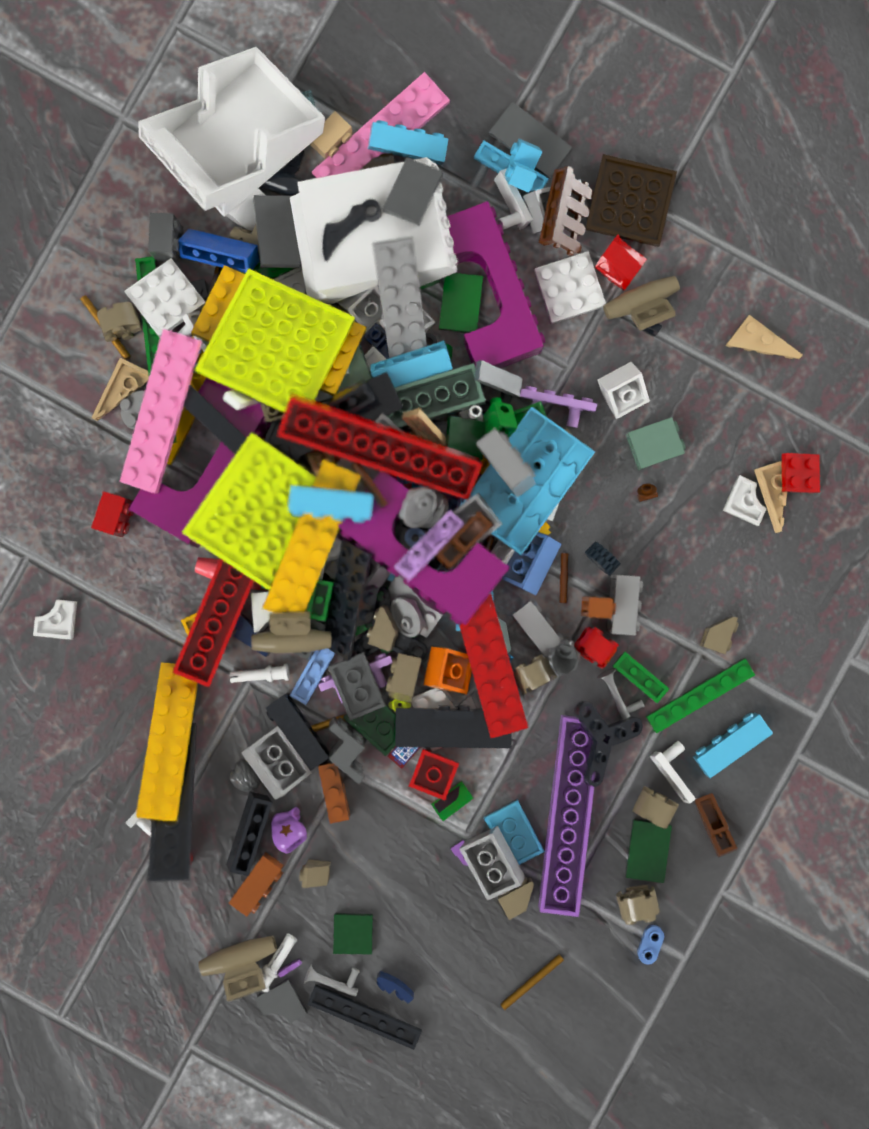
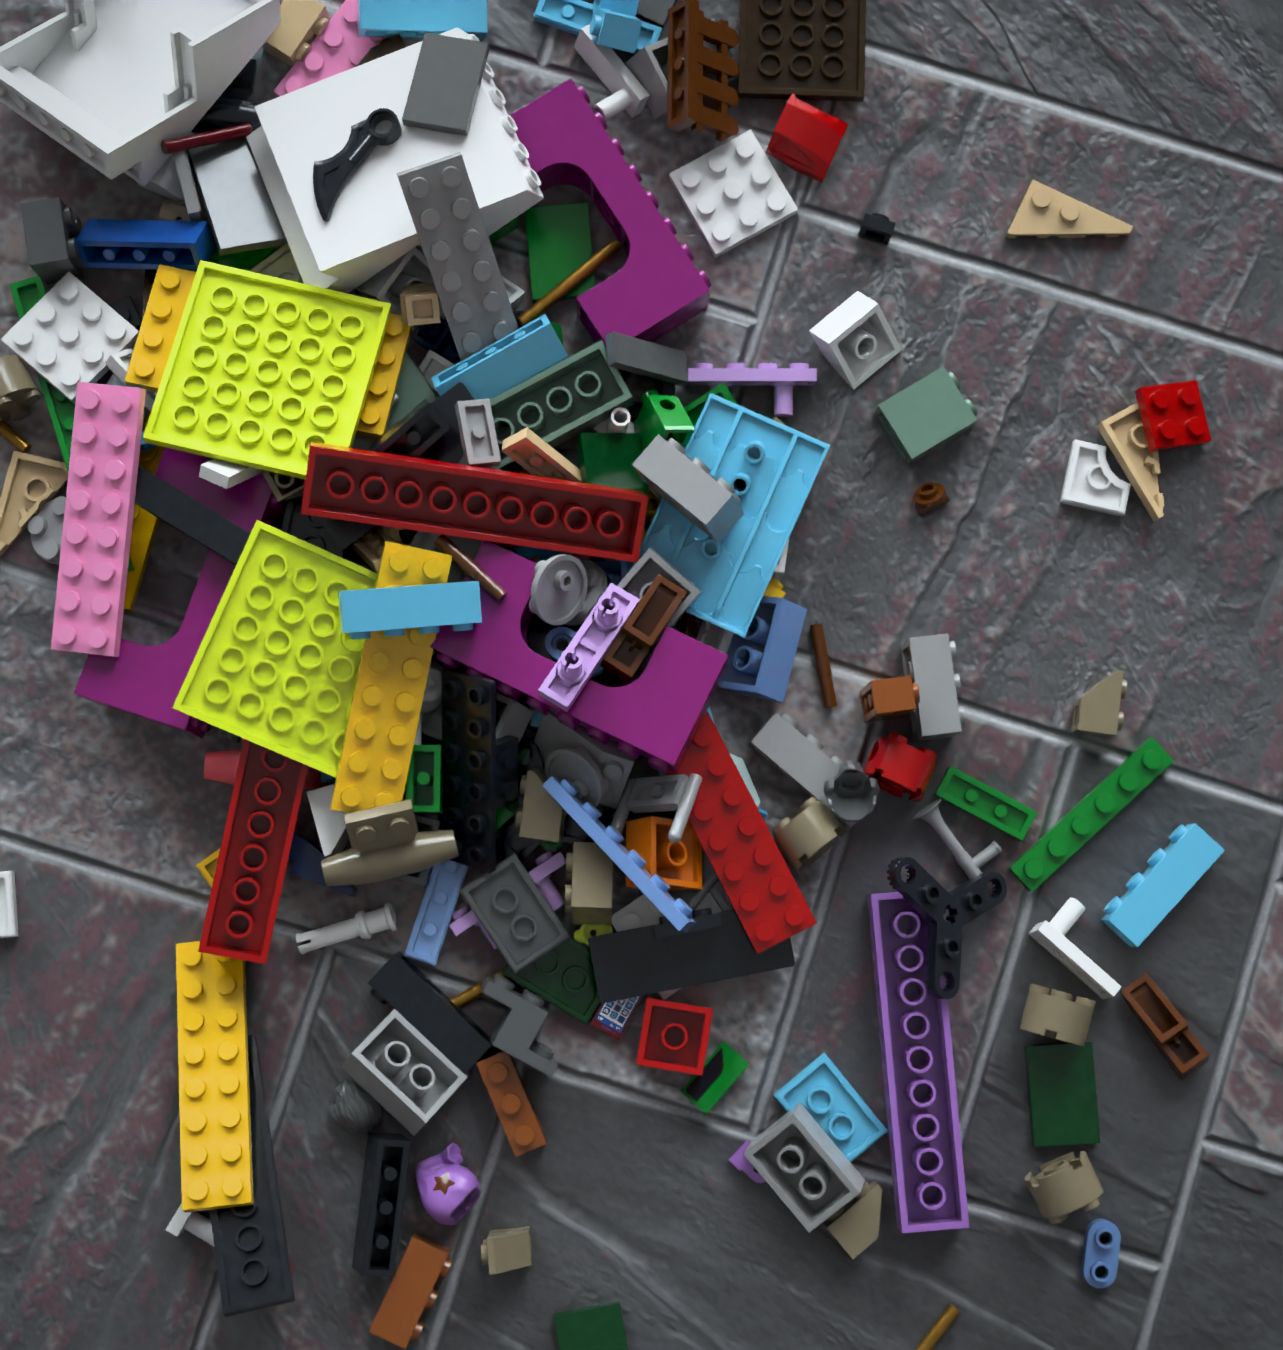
camera: 20 degrees left, 5 degrees down
(113, 515) = (49, 710): red brick -> none
(250, 222) = (188, 186): none -> light grey tile
(265, 194) = (206, 138): none -> dark red bar
(371, 320) = (419, 304): none -> tan leg
(390, 405) = (478, 433): none -> light grey plate
(428, 673) = (629, 862): none -> medium blue plate
(451, 636) = (658, 795): none -> light grey plate
(461, 323) = (569, 283): none -> pearl gold bar
(602, 558) = (880, 618): black wheel -> none
(645, 303) = (860, 193): dark tan plate -> none

